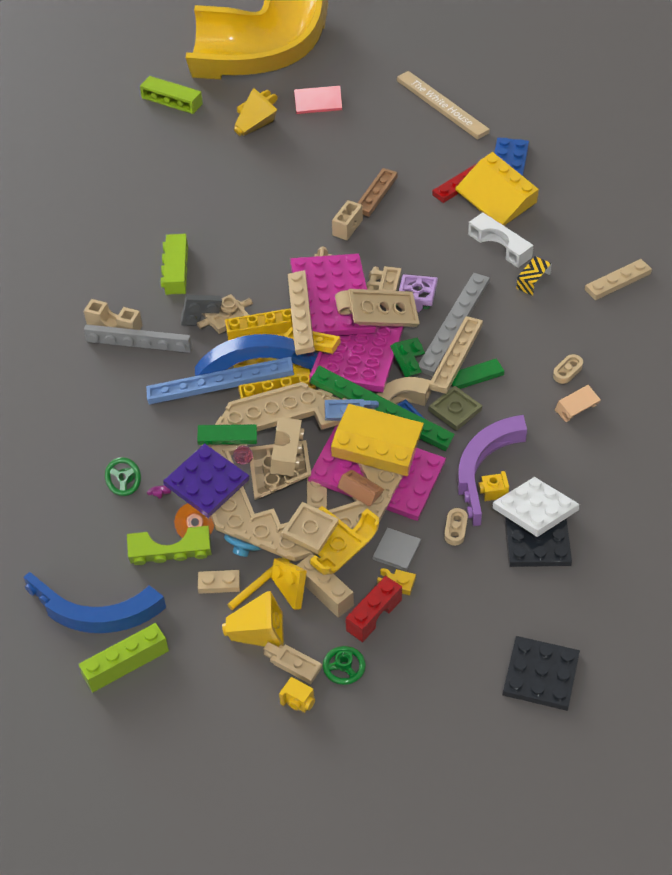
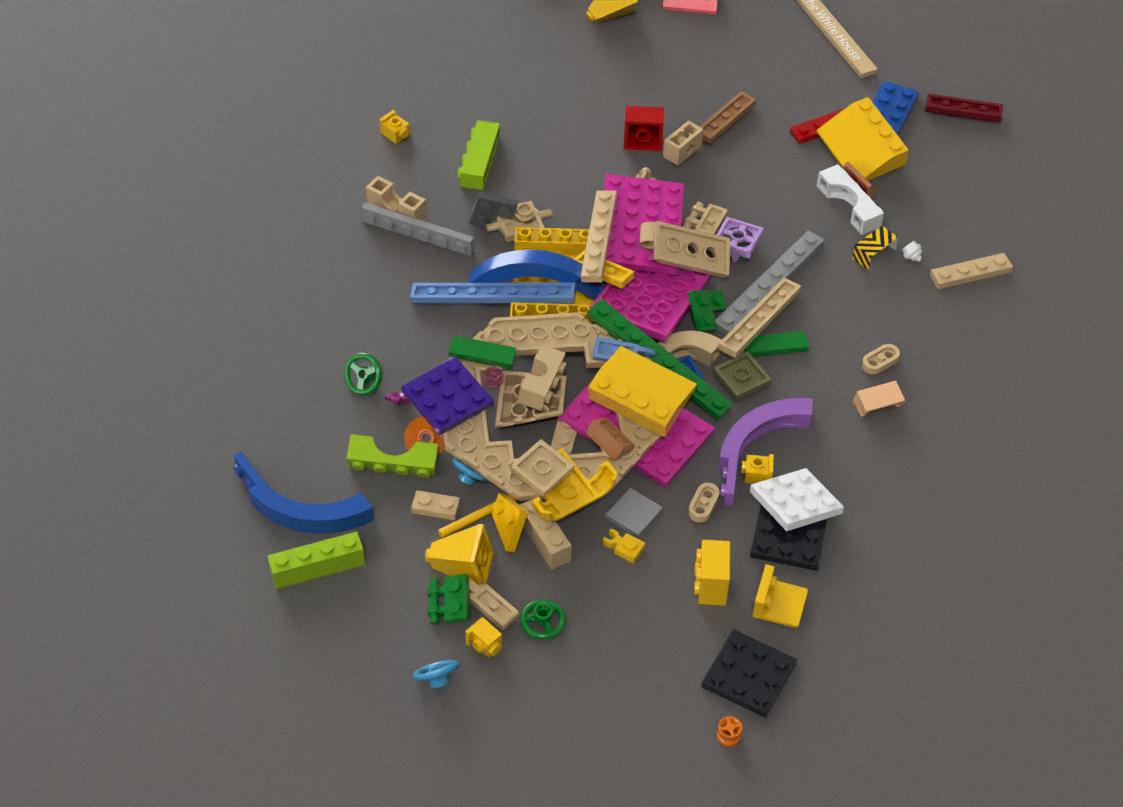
camera: 10 degrees right, 0 degrees up
(94, 255) = (394, 127): none -> yellow brick
(261, 663) = (456, 599): none -> green plate
(263, 737) = (436, 673): none -> dark azure piece
(311, 214) = (643, 128): none -> red brick
(381, 598) = (575, 575): red arch -> none
(484, 588) = (712, 572): none -> yellow brick
(504, 221) = (858, 178): none -> nougat slope
(542, 726) = (733, 727): none -> orange wheel
(548, 600) = (779, 600): none -> yellow bracket
(566, 273) = (912, 252): none -> white plate
(570, 147) = (964, 107): none -> dark red plate

